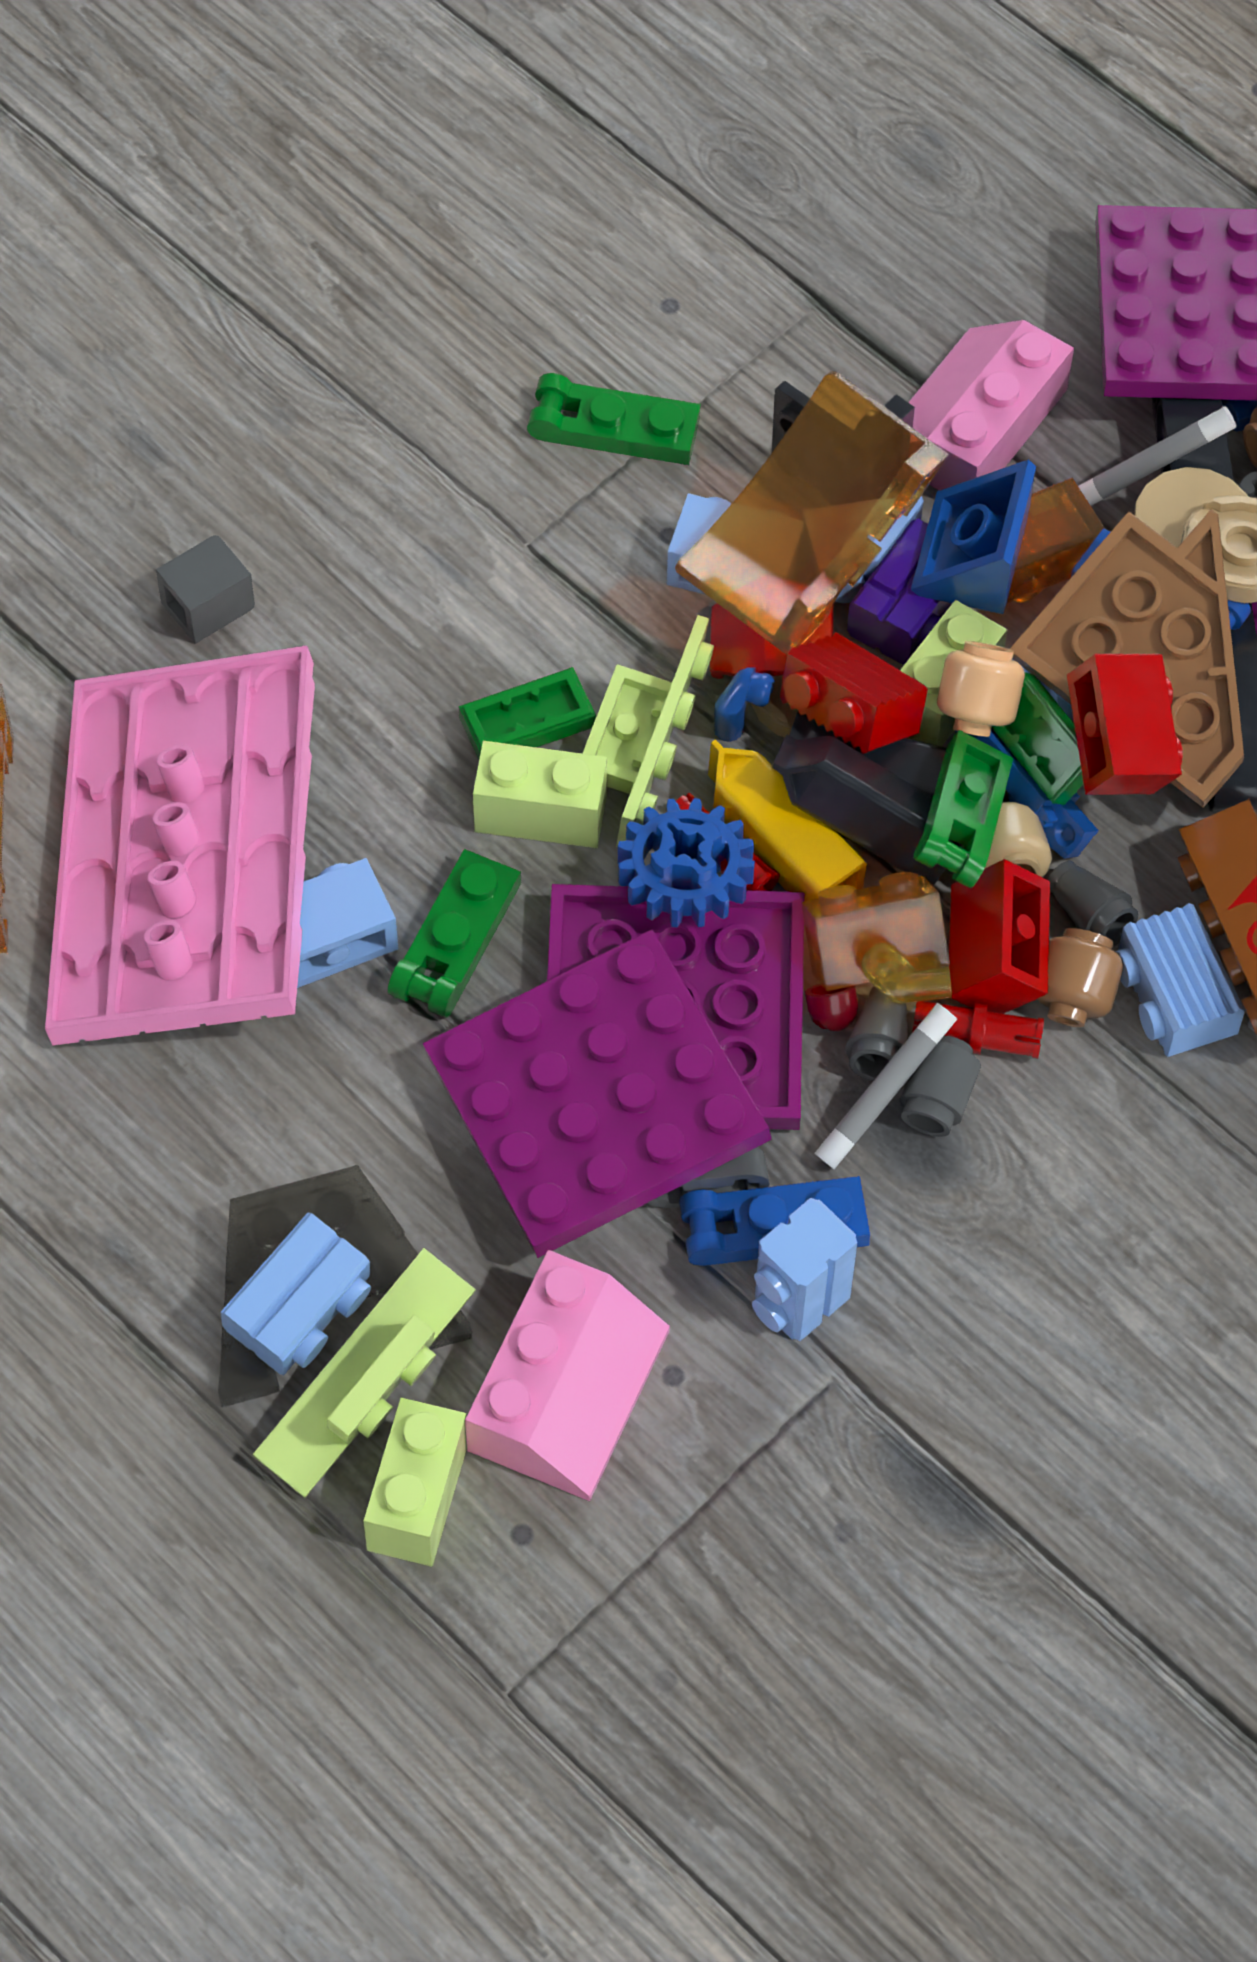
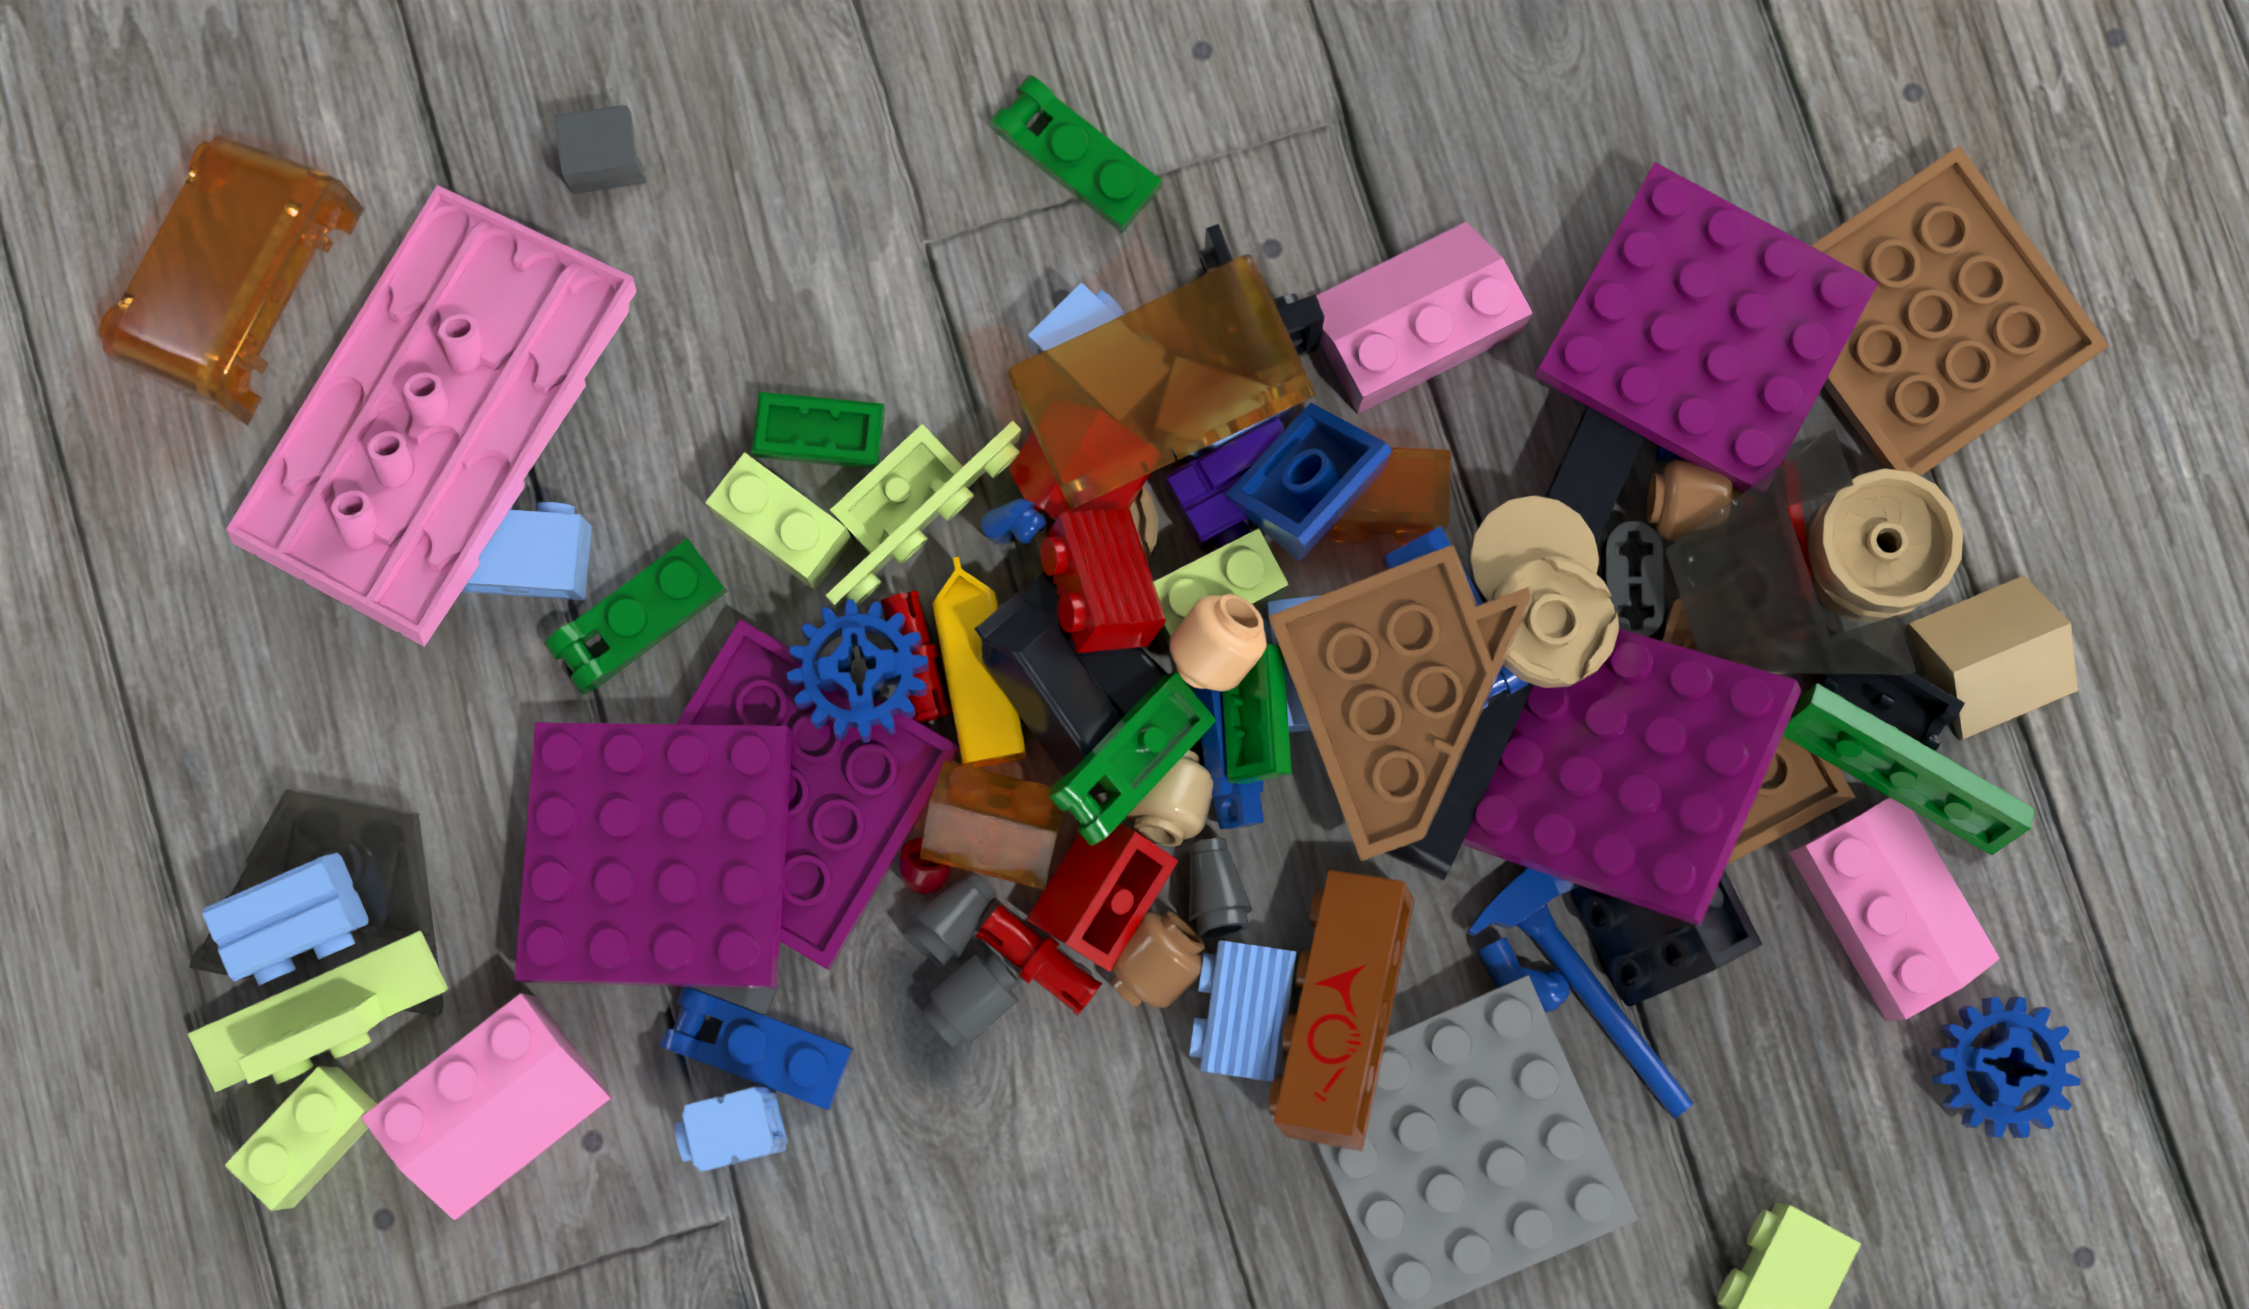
camera: 30 degrees right, 20 degrees up
(885, 1086) = (918, 980): light grey bar -> none
(900, 980) = (986, 890): clear yellow arm -> none
(1124, 724) = (1318, 763): red brick -> none
(1158, 455) = (1541, 468): light grey bar -> none

